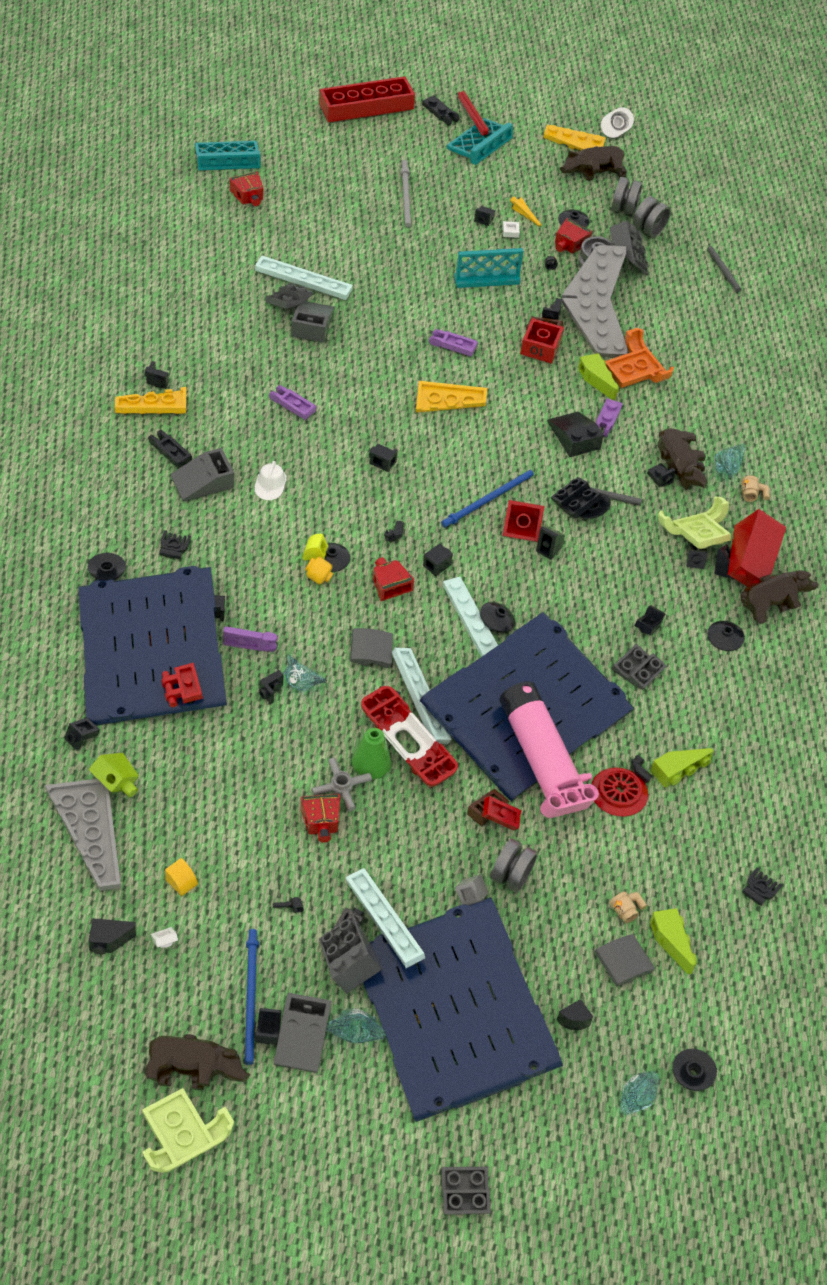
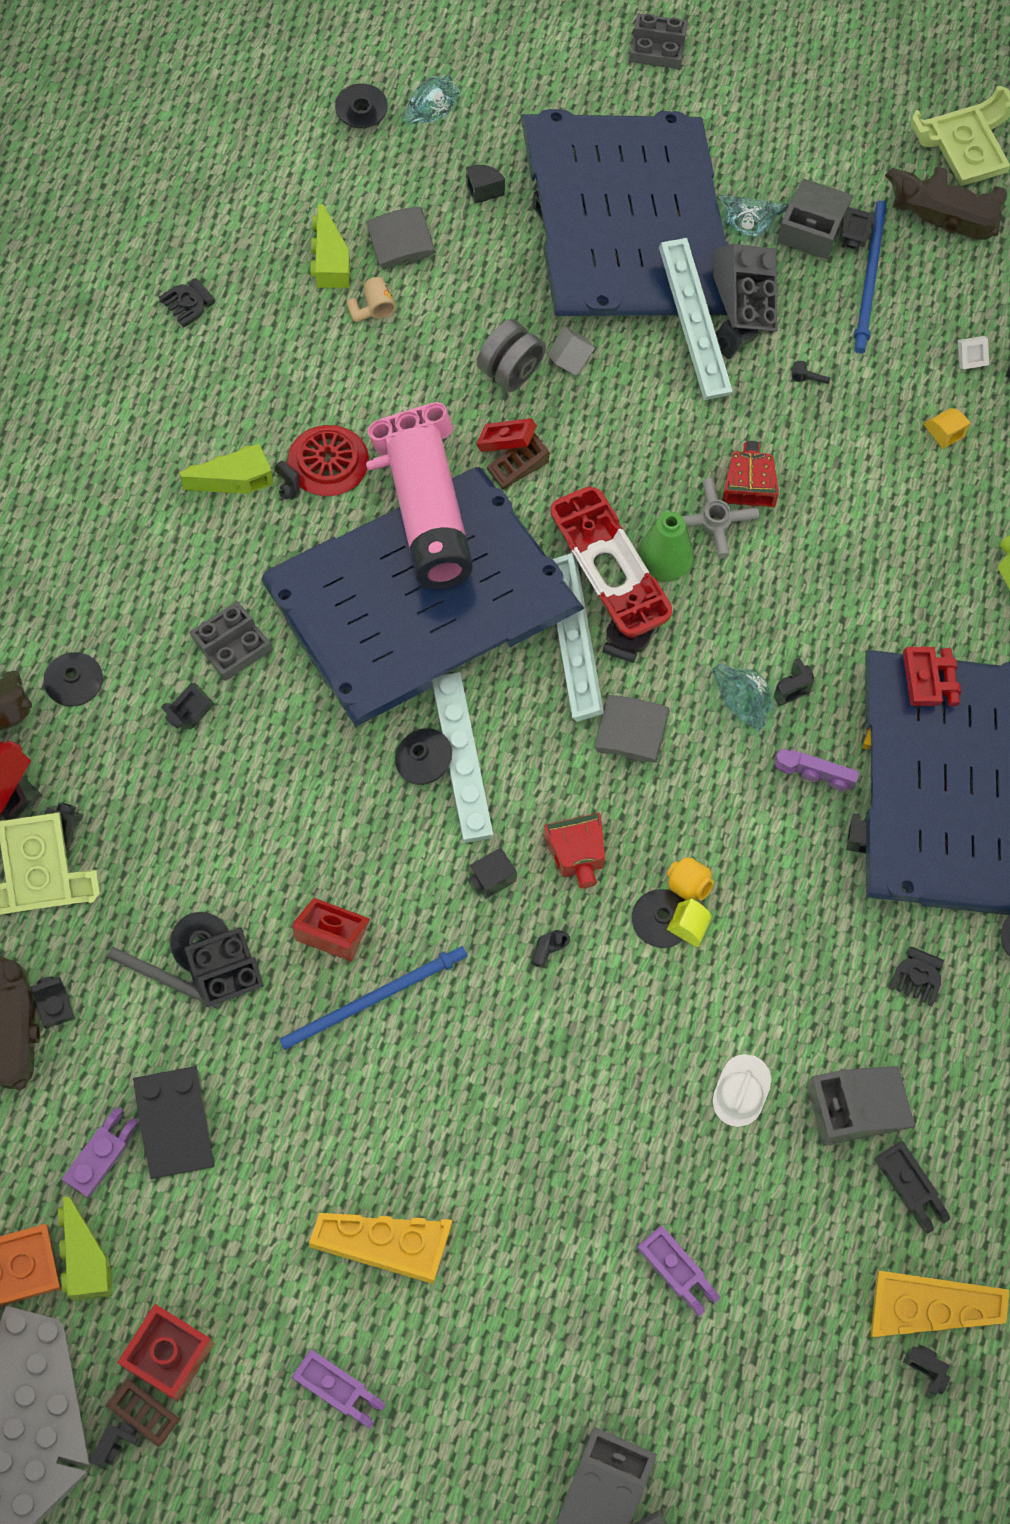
camera: 165 degrees left, 15 degrees up
(383, 457) = (538, 1107): black brick -> none
(549, 542) = (297, 874): black slope -> none

